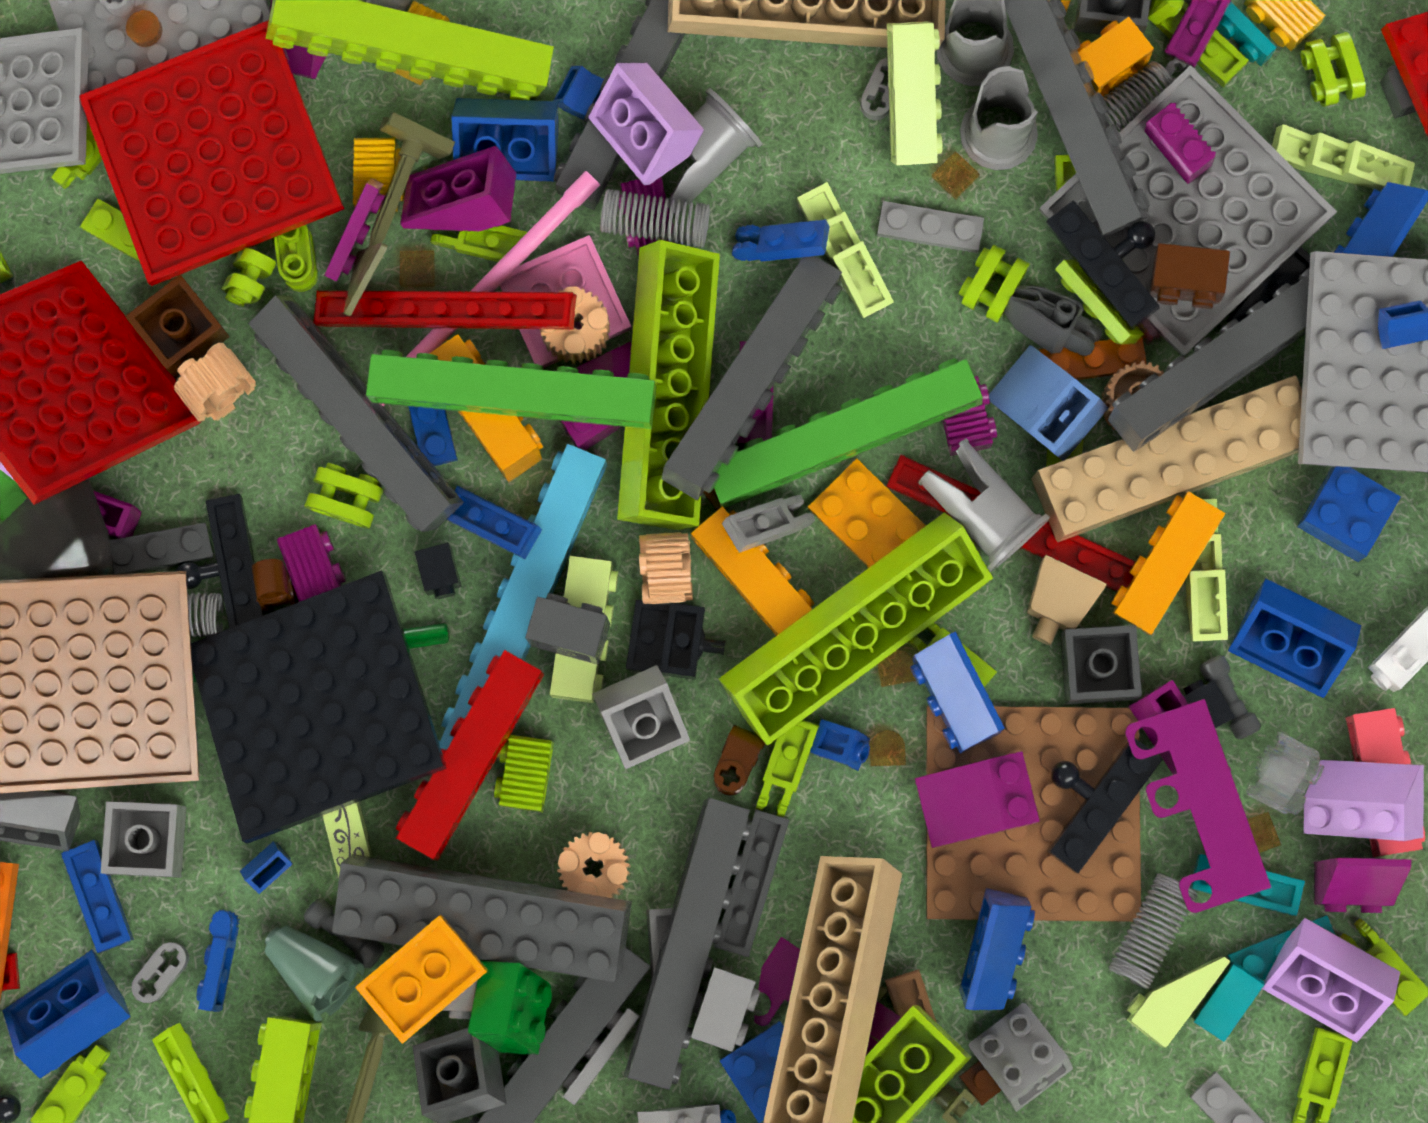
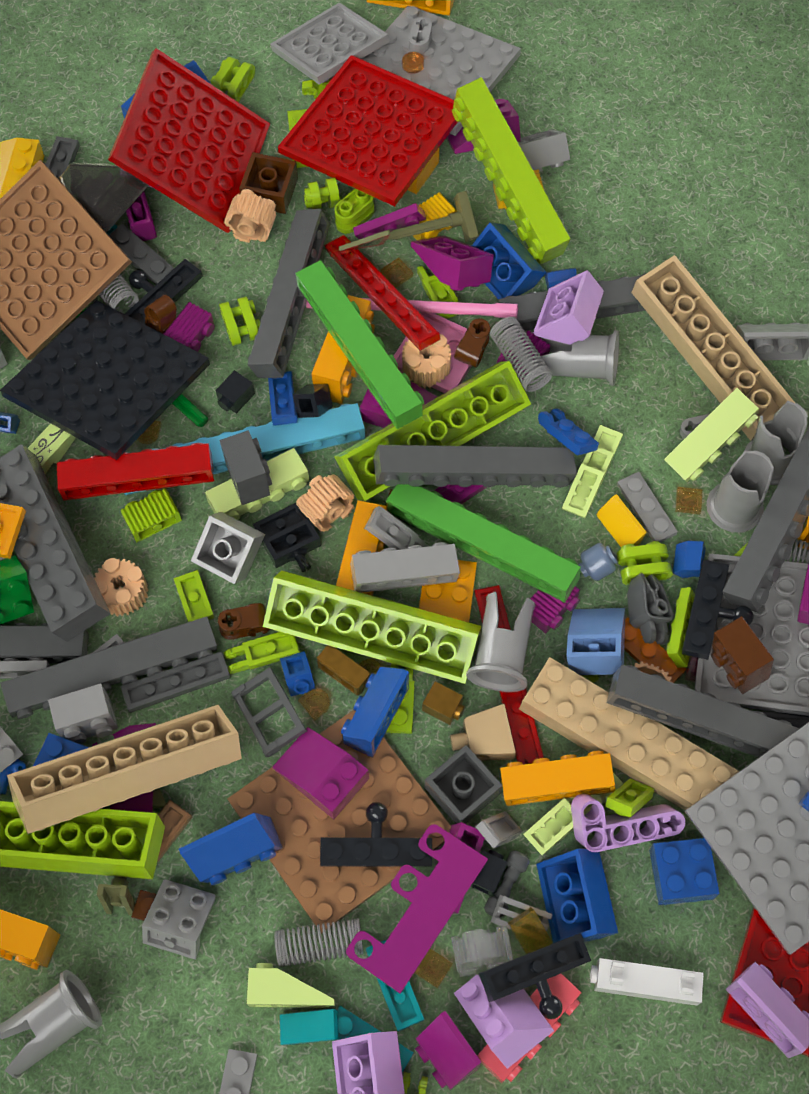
camera: 50 degrees right, 15 degrees down
(433, 434) = (310, 341): blue plate -> none
(529, 492) = (312, 400): none -> black brick
(597, 261) = (472, 346): none -> reddish brown piece
(665, 795) = (193, 596): none -> lime plate
(816, 543) = (404, 567): none -> light grey brick
(866, 783) = (253, 721): none -> dark grey window
(876, 693) = (343, 669): none -> pearl gold slope
(930, 269) = (621, 522): none -> yellow slope
(956, 330) = (598, 561): none -> sand blue head
(993, 616) = (443, 703): none -> pearl gold brick
(1026, 232) = (689, 558): none -> blue piece
(1174, 662) = (499, 829): none -> light grey tile
(1239, 504) = (629, 798): none -> lime plate
(1257, 556) = (629, 827): none -> lavender beam
(1294, 696) = (500, 910): none -> light grey tile
(1306, 713) = (529, 931): none -> clear yellow tile
(1348, 738) = (536, 969): none -> black plate

